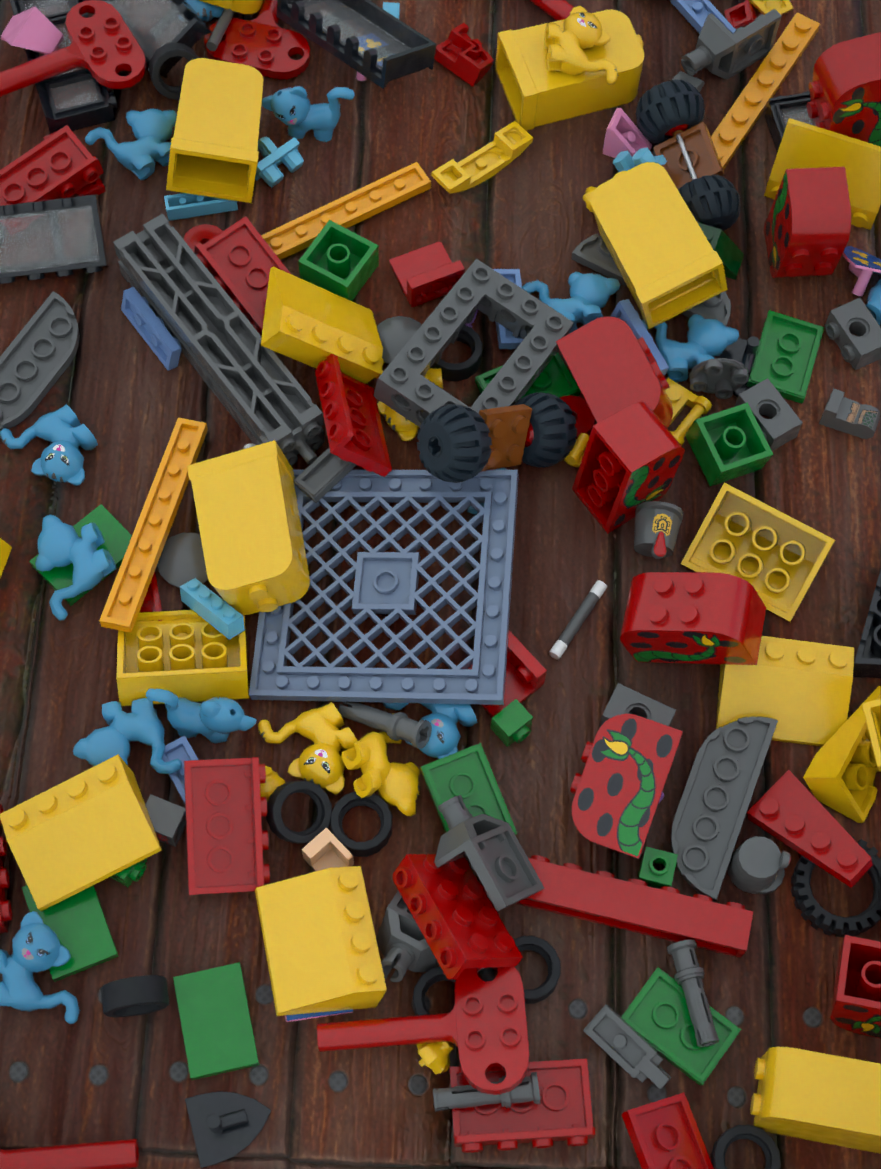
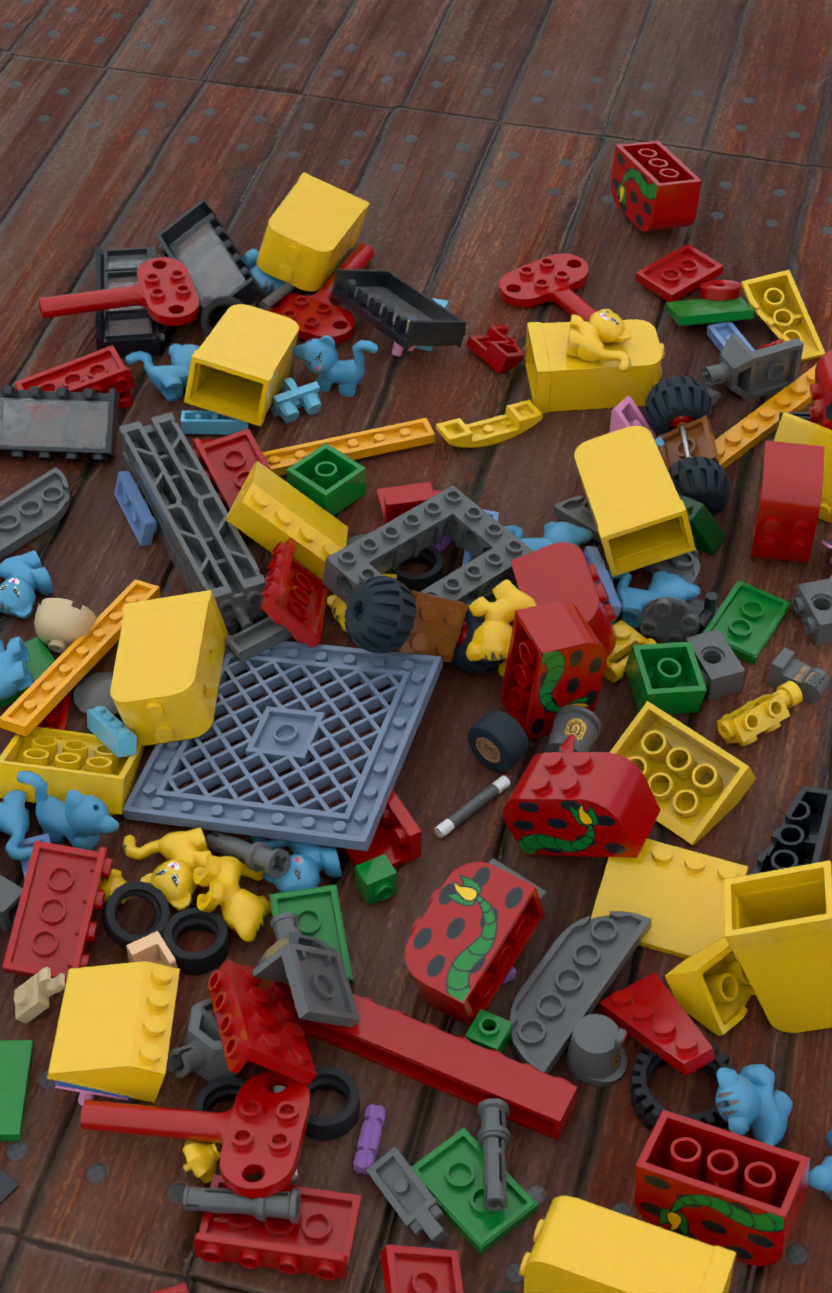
camera: 15 degrees right, 20 degrees down
(32, 31) = (106, 273): bright pink slope -> none
(123, 491) = (61, 624): none -> tan cylinder
(227, 916) = (34, 994): none -> tan plate
(564, 437) = (493, 637): none -> yellow animal
(576, 996) = (369, 1138): none -> medium lavender axle
(589, 547) = (498, 741): none -> black wheel
(823, 467) = (759, 715): none -> yellow brick

